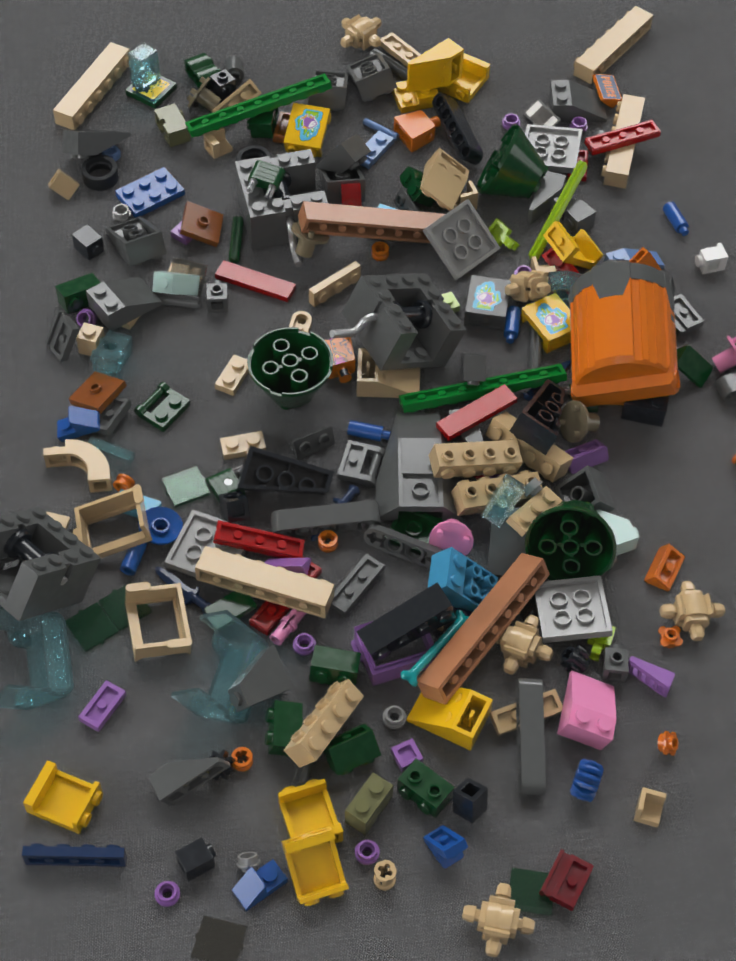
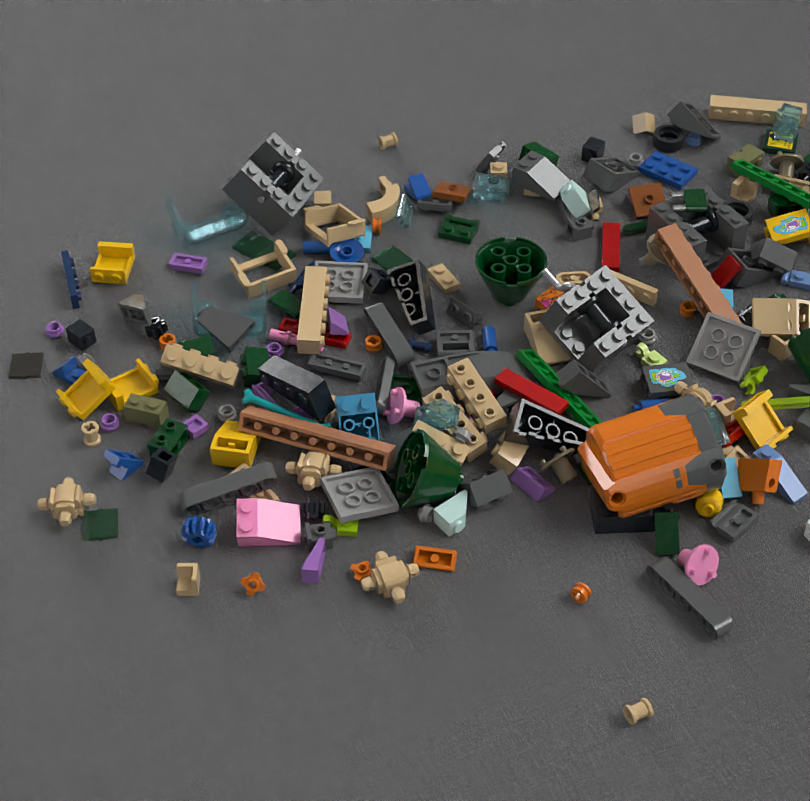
camera: 75 degrees right, 10 degrees down
(258, 540) = (353, 303): red tile -> none
(566, 880) = (111, 539): dark red plate -> none

